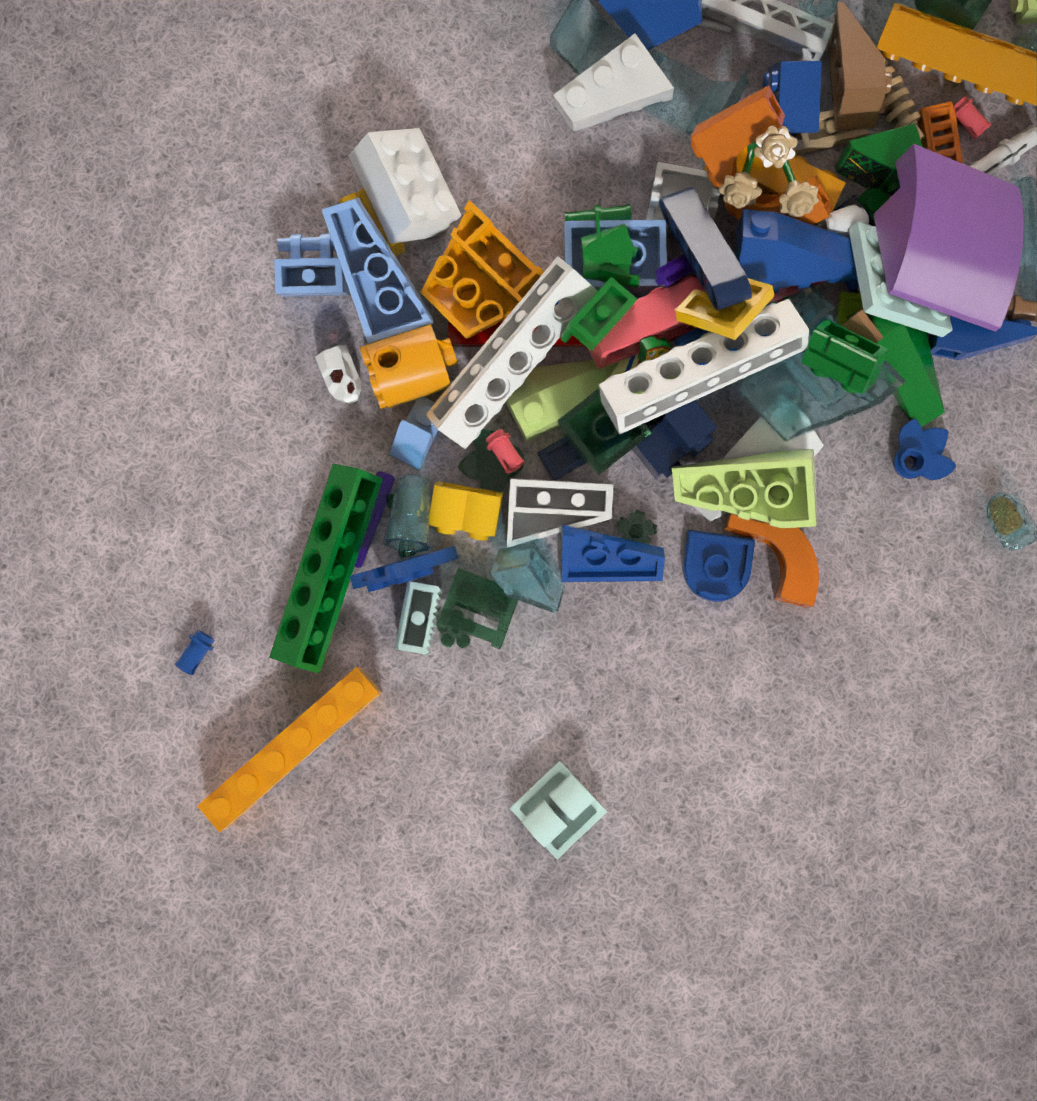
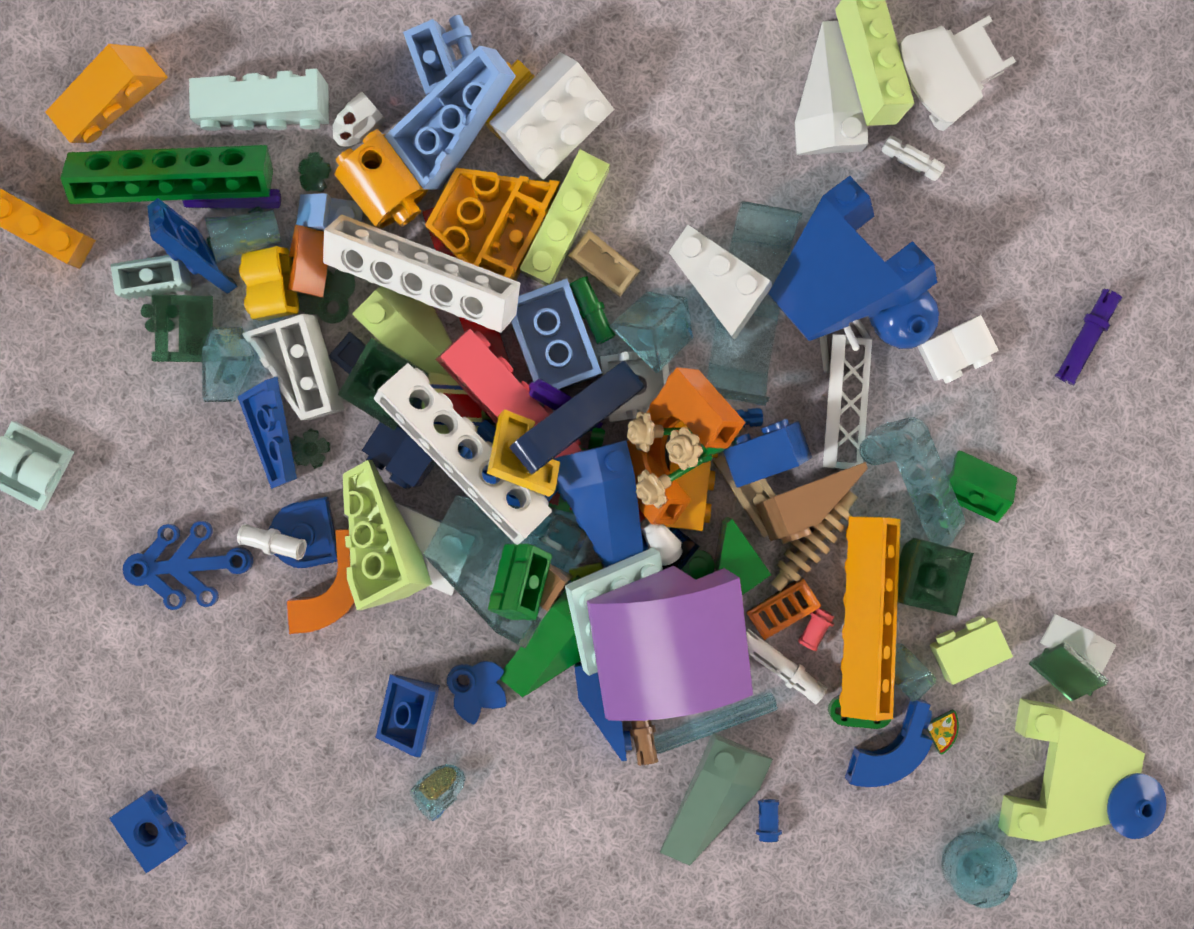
camera: 70 degrees right, 5 degrees up
(195, 652) = (49, 81): blue pin -> none
(225, 602) = (105, 92): none -> light orange wedge
(288, 454) = (260, 101): none -> light aqua wedge
(373, 432) = (314, 172): none -> clear green plant
(450, 460) = (307, 269): none -> orange slope
(504, 451) = (333, 300): coral pin -> none
(508, 212) = (565, 218): none -> yellowish green brick
(558, 192) = (604, 263): none -> tan plate
(600, 314) = (476, 342): green panel -> none
(608, 255) = (545, 329): green piece -> none
(636, 161) = (656, 327): none -> clear light blue slope
(652, 348) = (466, 402): green tile -> none
(708, 694) = (181, 567): none -> blue plant
(716, 594) = (271, 541): none -> white pin
(927, 523) = (407, 714): none -> blue slope
(979, 819) = (147, 848): none -> blue brick

